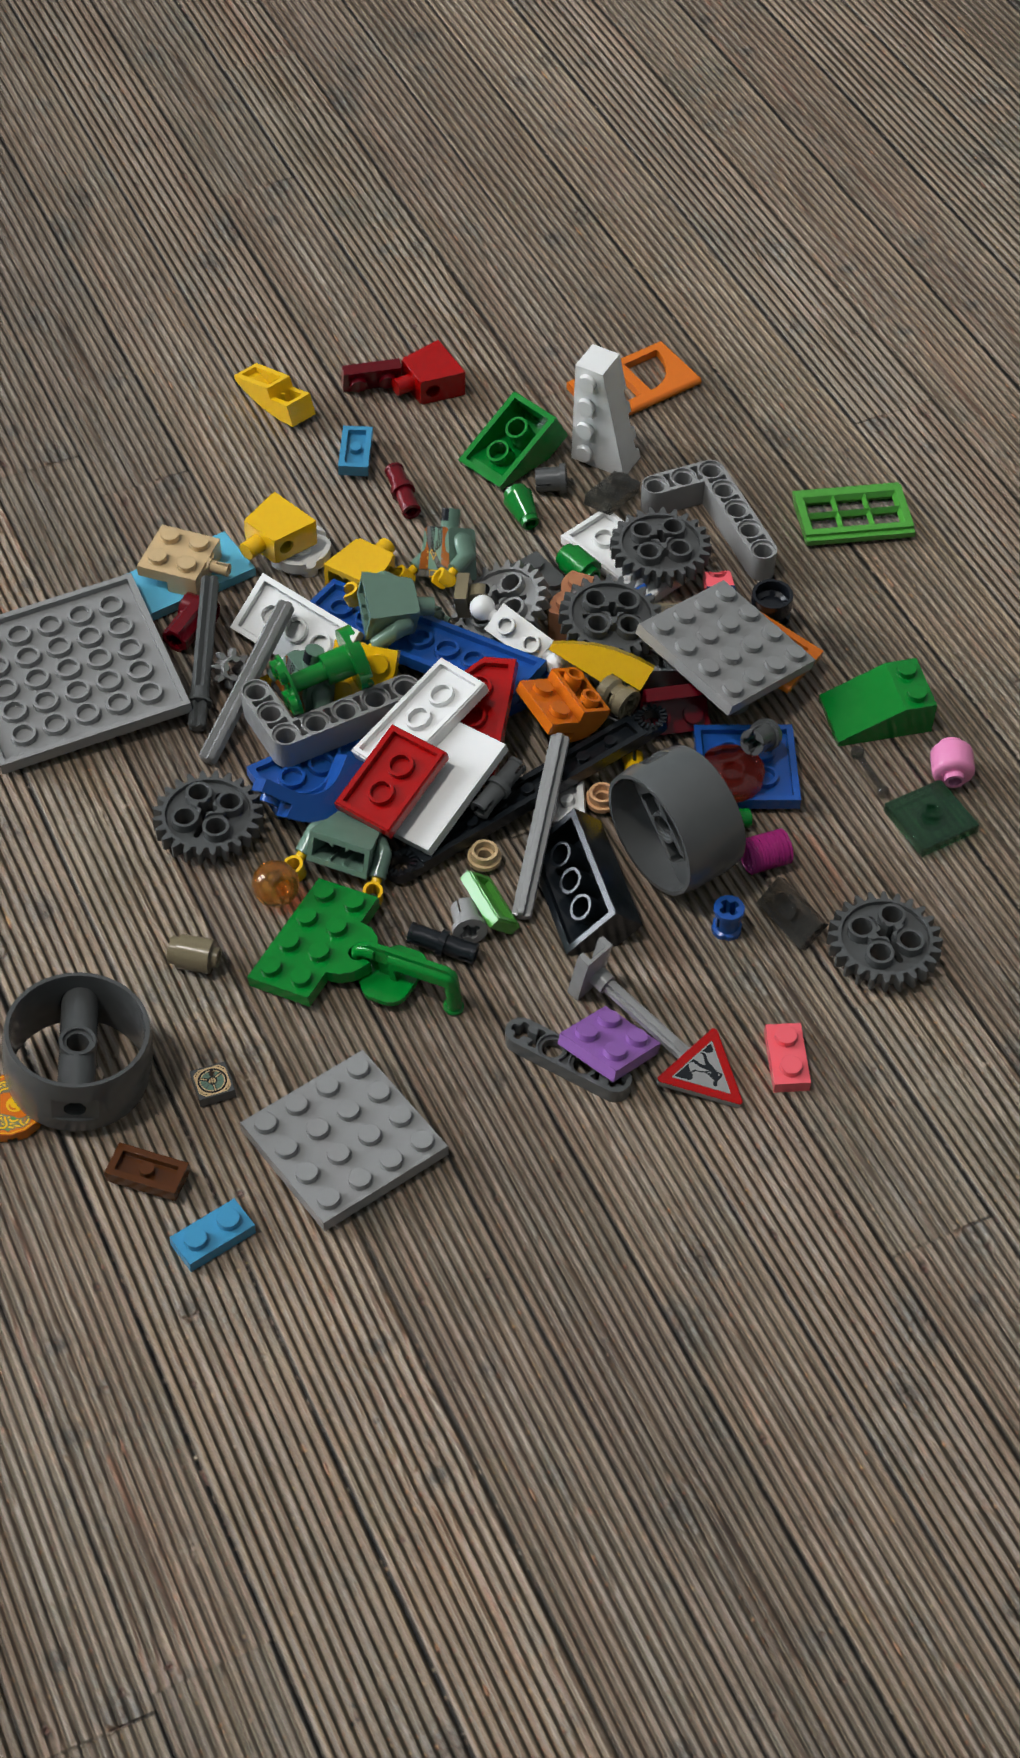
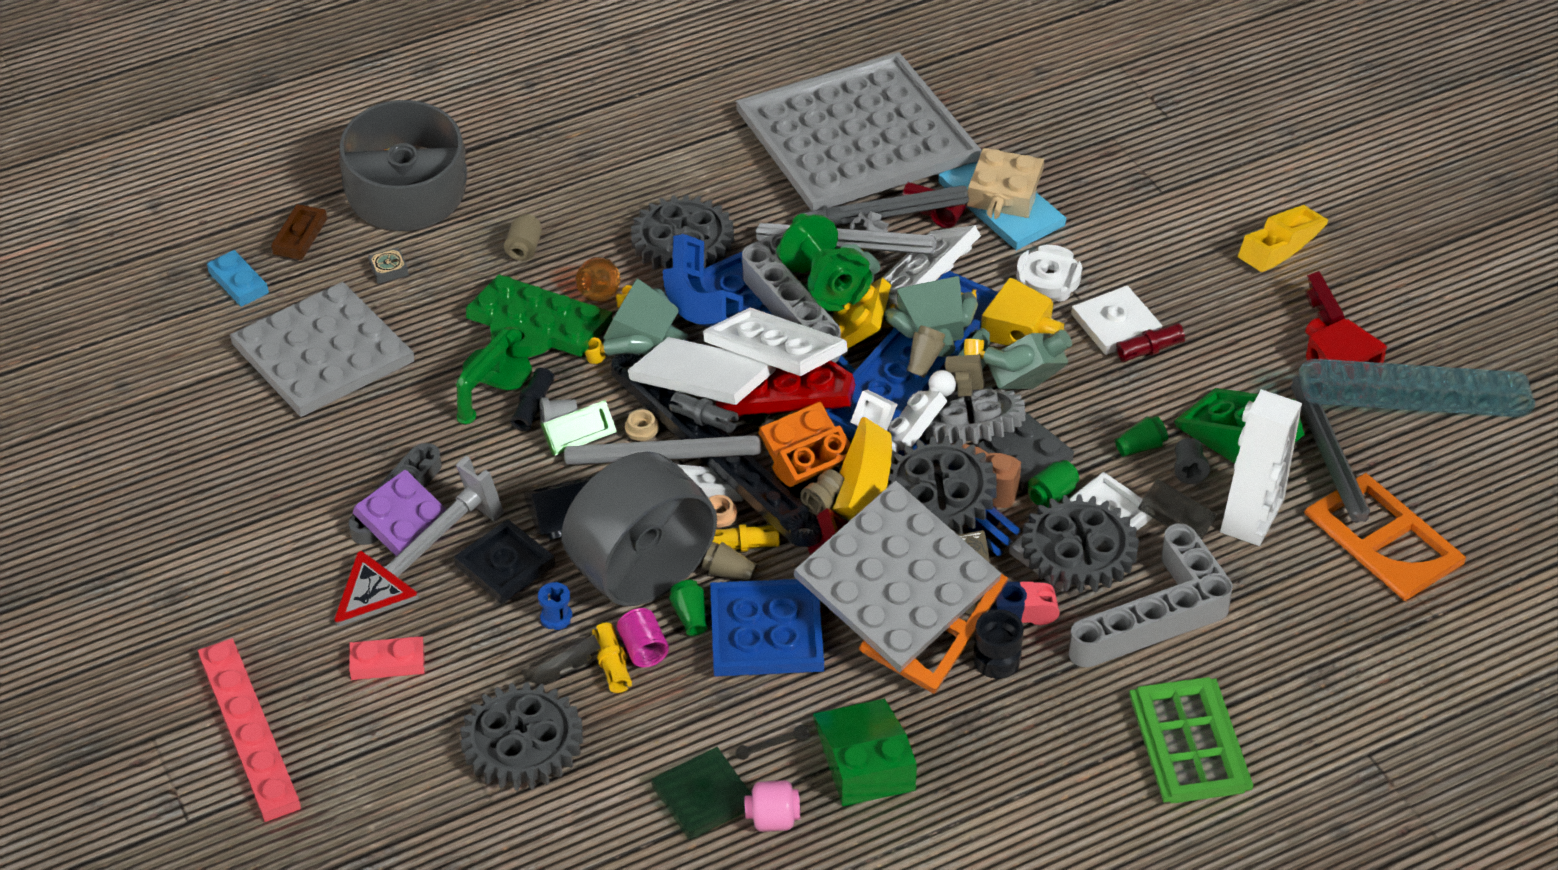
camera: 90 degrees right, 5 degrees down
(277, 530) = (1051, 238): yellow torso -> none
(355, 450) = (1205, 303): dark azure plate -> none
(366, 512) = (1114, 318): none -> white plate
(391, 781) = (695, 325): red tile -> none
(442, 612) = (925, 349): none -> dark tan cone
(483, 335) = (1416, 387): none -> clear light blue beam
(527, 650) = (874, 408): none -> white tile
(538, 396) = (1333, 456): none -> dark grey axle
(666, 961) = (504, 561): none -> black plate
(739, 770) = (743, 604): clear red tile -> none
(761, 737) = (780, 616): dark grey bush -> none
(796, 876) = (612, 658): none -> yellow pin
(879, 1169) = (249, 730): none -> coral plate

